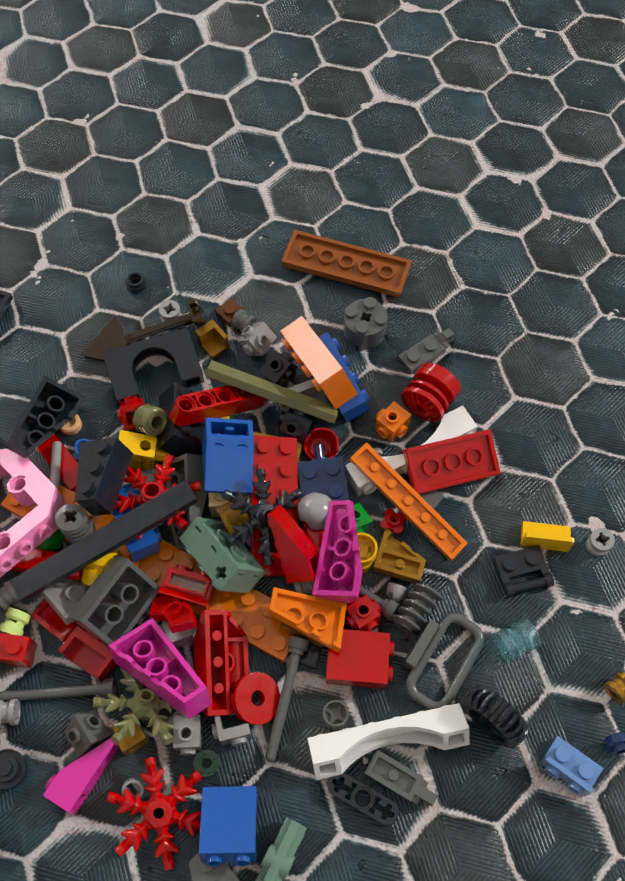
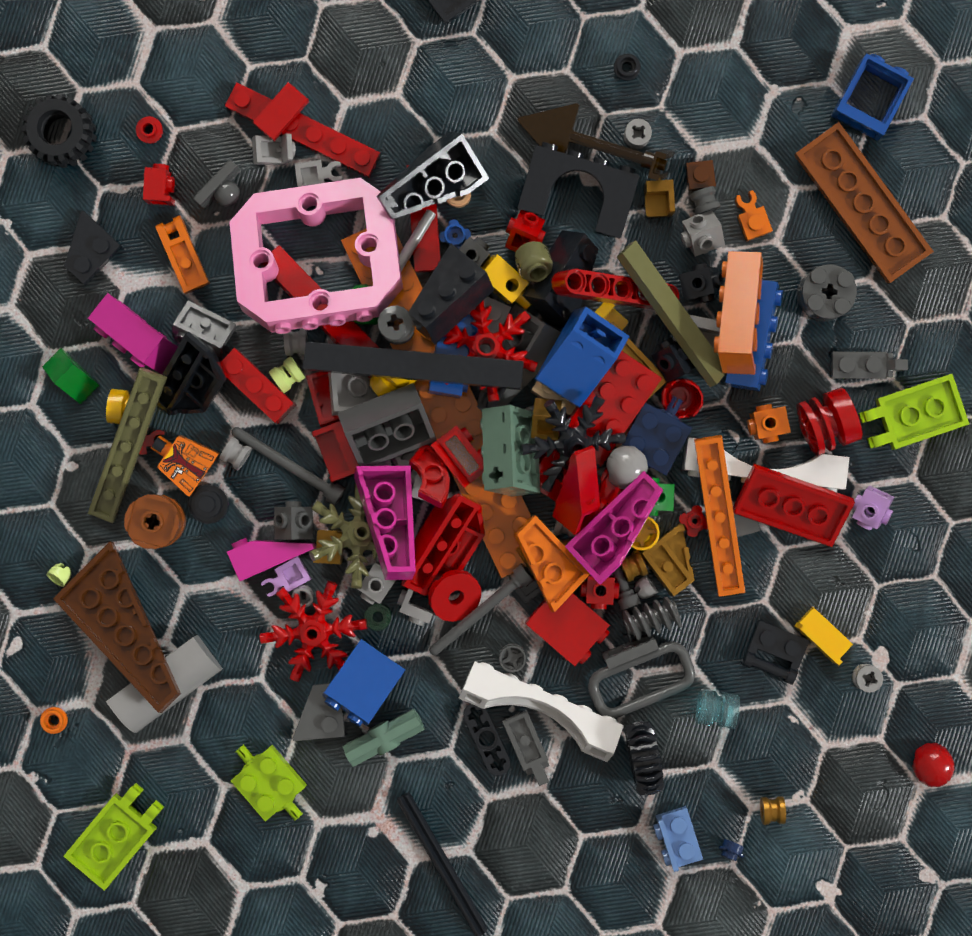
camera: 35 degrees right, 25 degrees up
(110, 779) = (289, 575): none -> lavender plate
(281, 315) = (754, 220): none -> orange plate
(304, 221) = (861, 121): none -> blue window
(374, 580) = (634, 566): none -> pearl gold wheel
(483, 356) = (917, 413): none -> lime tile
(502, 420) = (879, 502): none -> lavender brick

